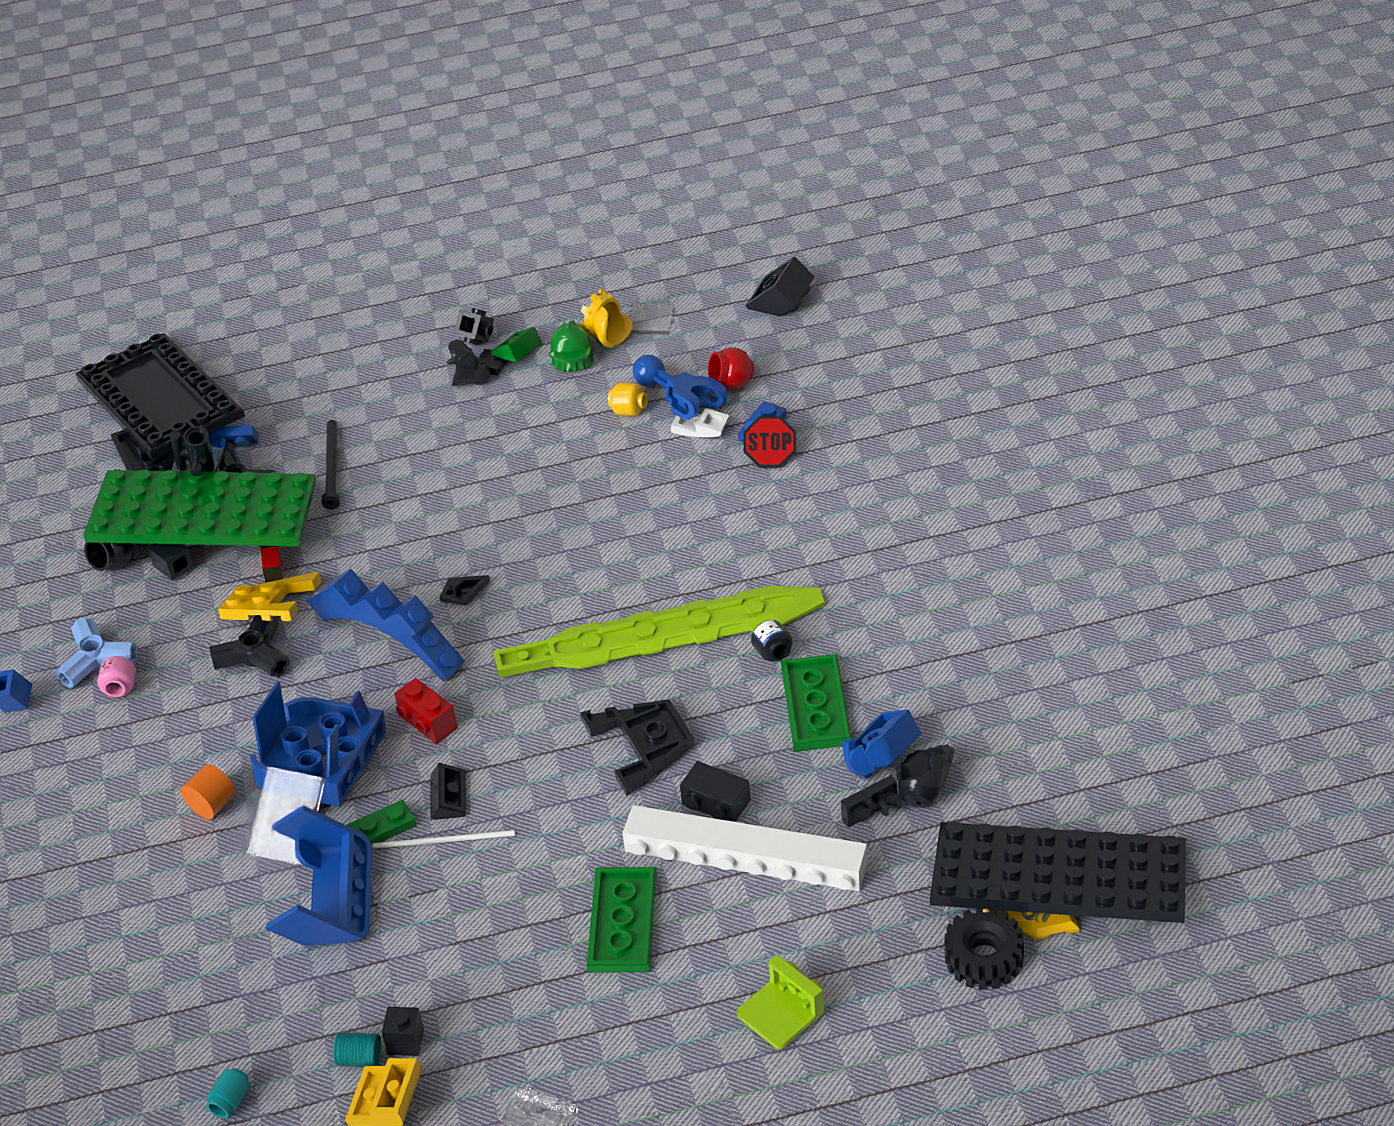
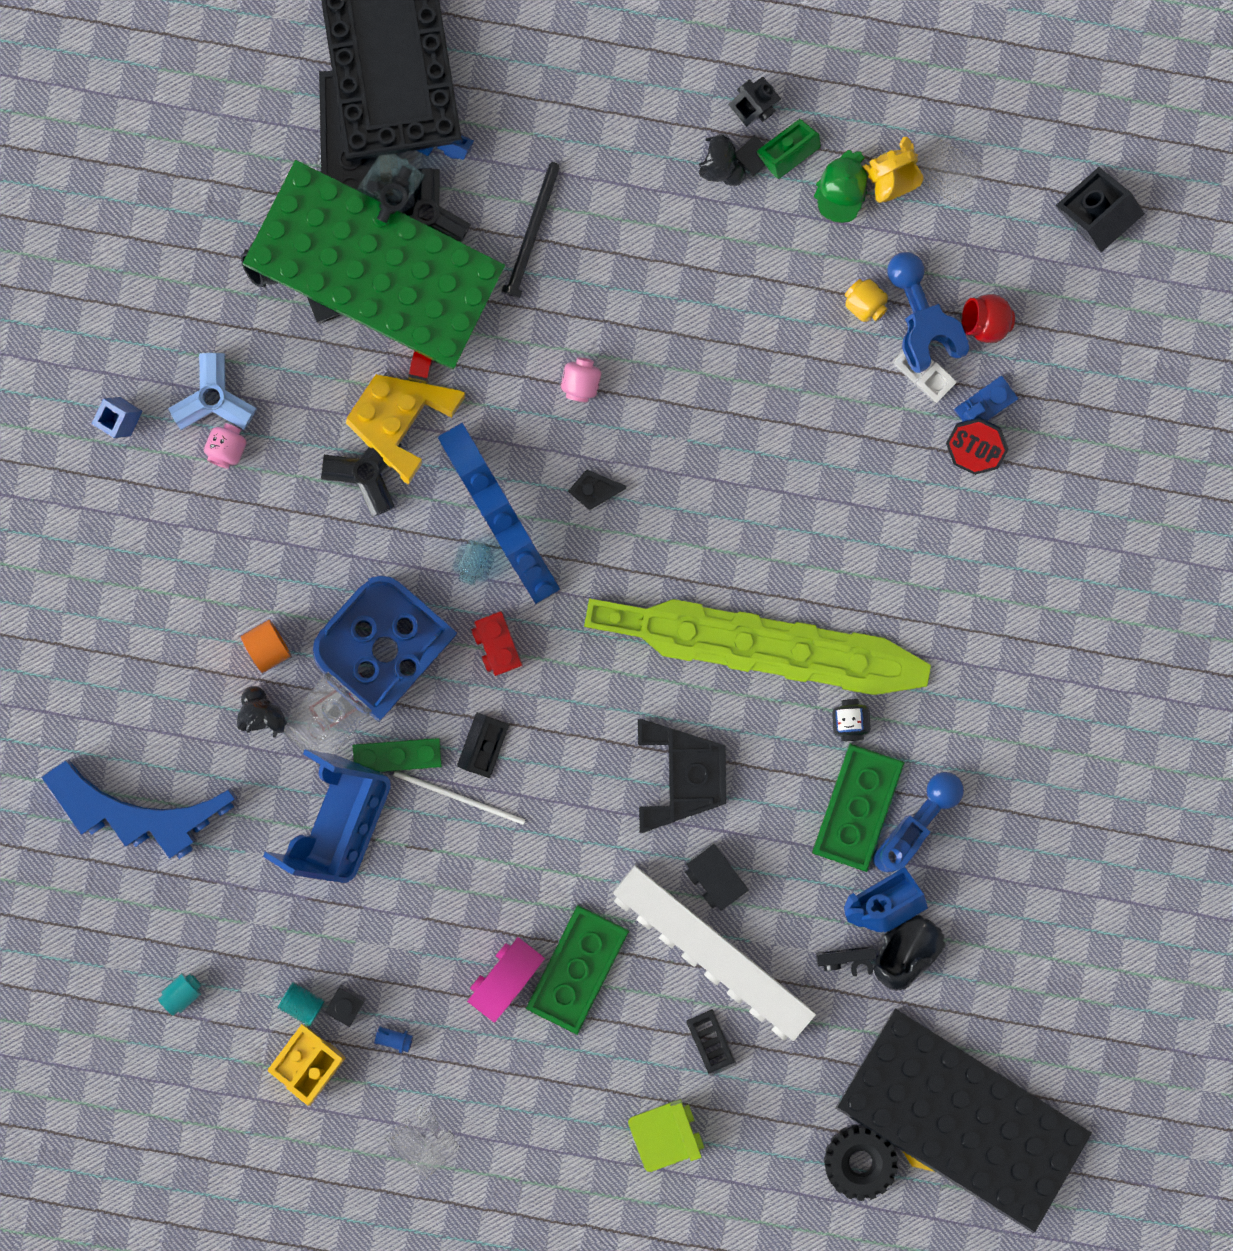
camera: 25 degrees right, 45 degrees up
(125, 974) = (89, 806): none -> blue arch
(224, 843) = (259, 712): none -> black piece
(379, 667) = (473, 562): none -> clear light blue head
(415, 525) = (581, 380): none -> bright pink head
(466, 1043) = (394, 1039): none -> blue pin
(553, 944) = (505, 980): none -> dark pink brick
(795, 935) = (722, 1065): none -> black slope
(870, 682) = (943, 792): none -> blue piece

